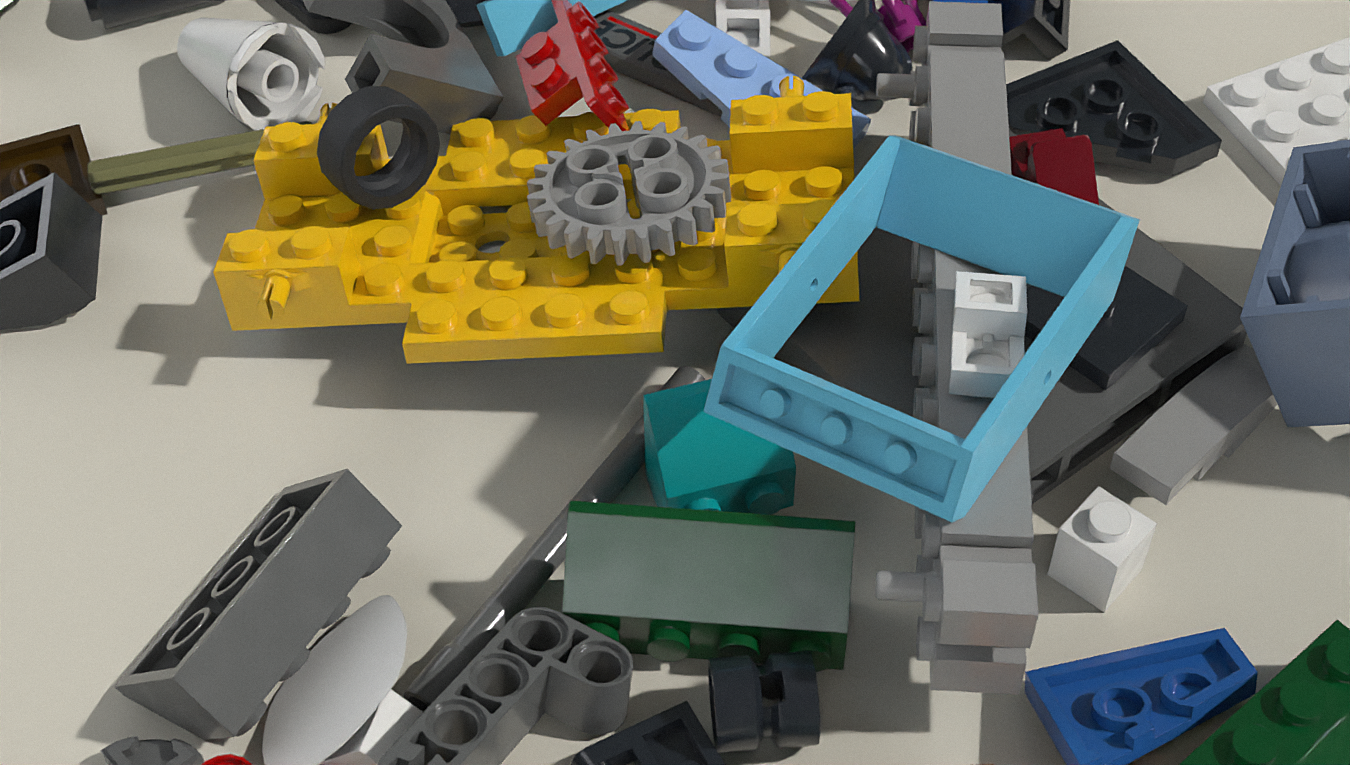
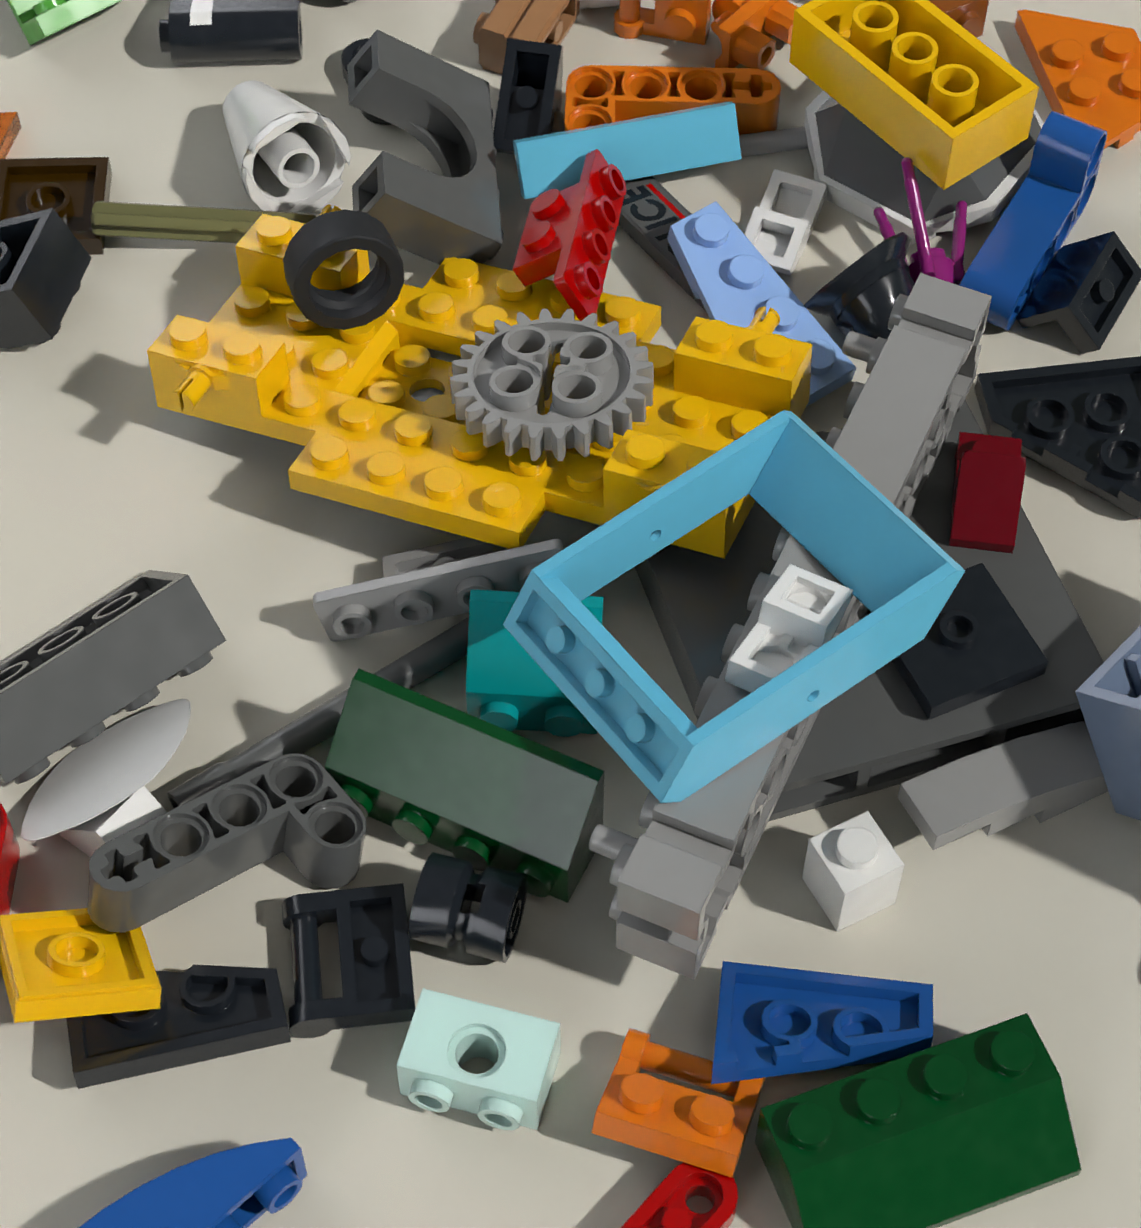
camera: 20 degrees right, 5 degrees up
(590, 409) = (427, 585): none -> light grey bracket

